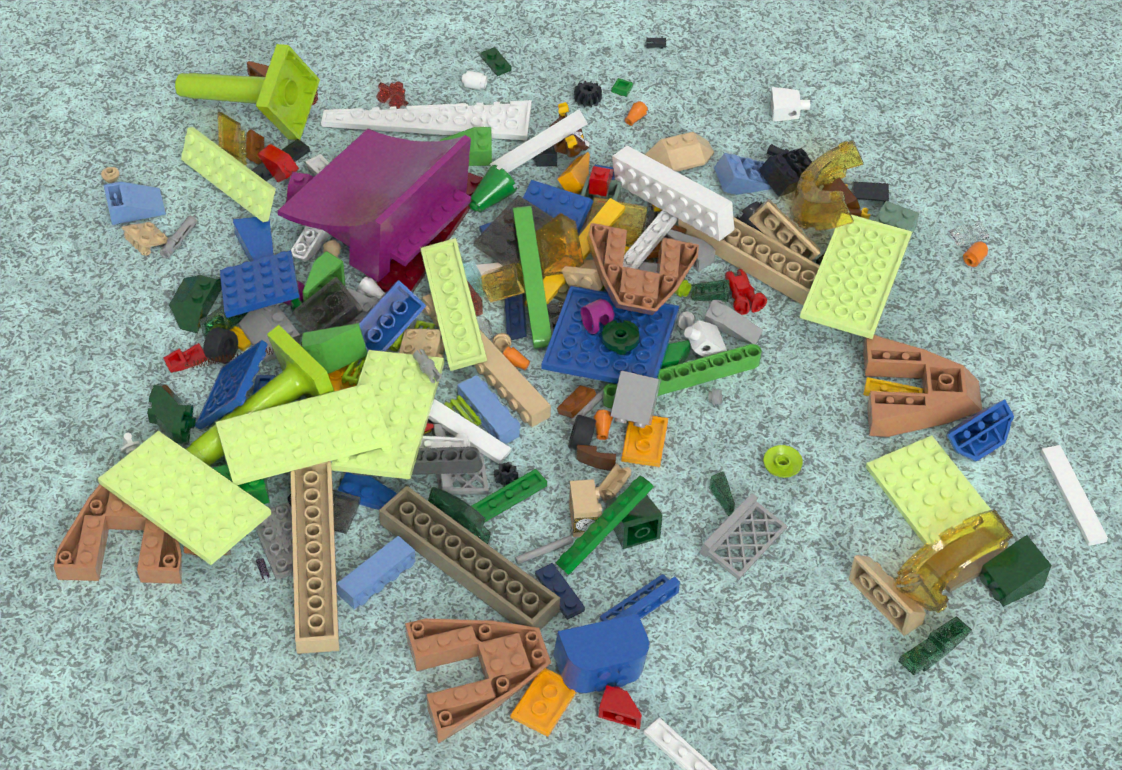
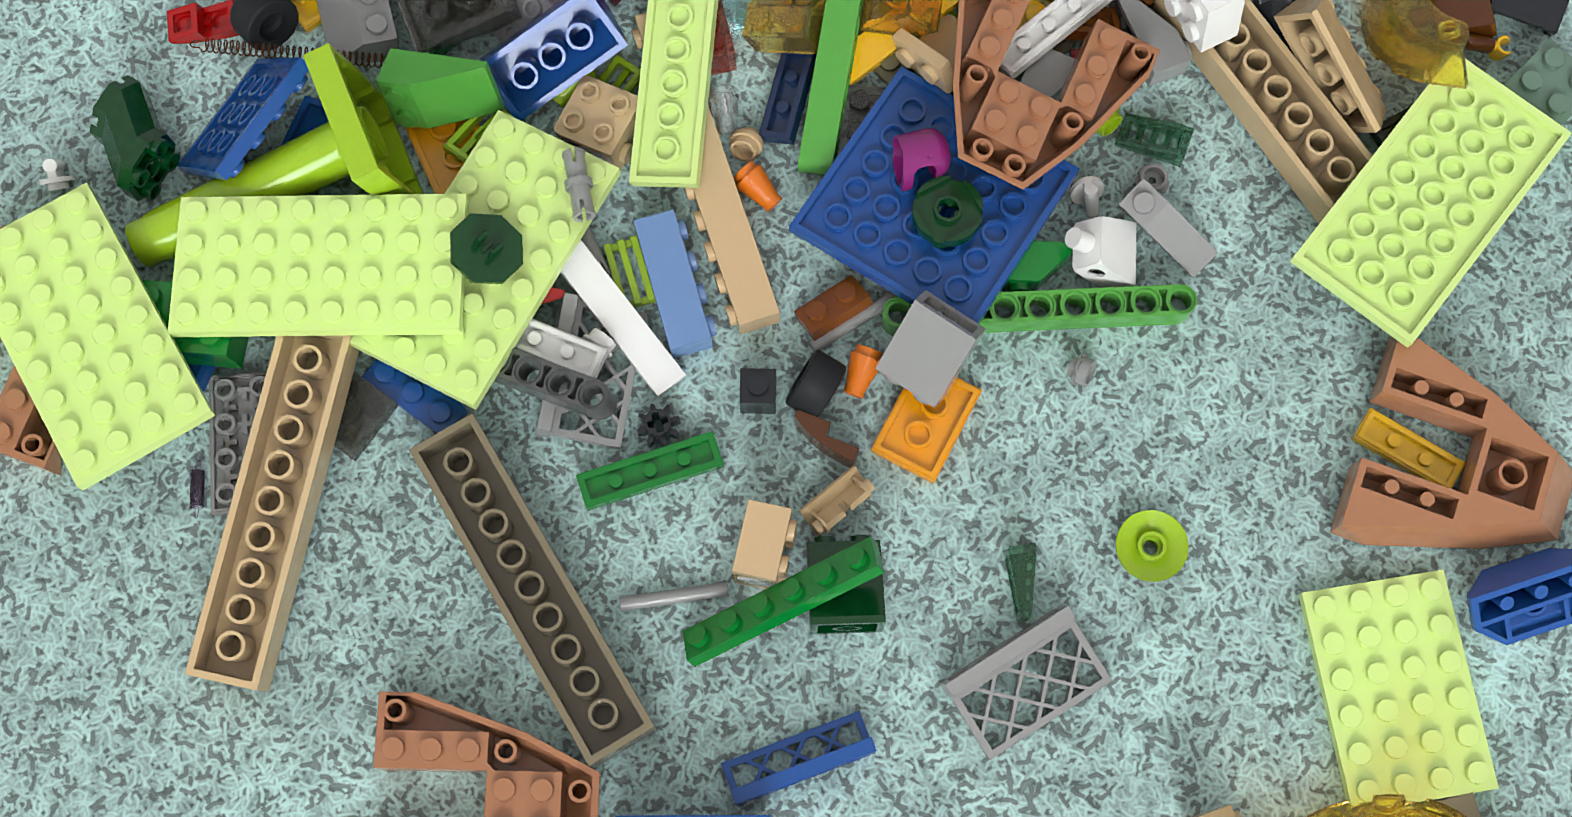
camera: 20 degrees right, 25 degrees up
(376, 572) = (374, 560): medium blue brick -> none
(390, 403) = (486, 248): none -> dark green piece
(460, 512) = (548, 482): clear green slope -> none
(552, 445) = (757, 391): none -> black brick
(553, 580) = (671, 689): dark blue plate -> none
(744, 293) = (1212, 149): red piece -> none

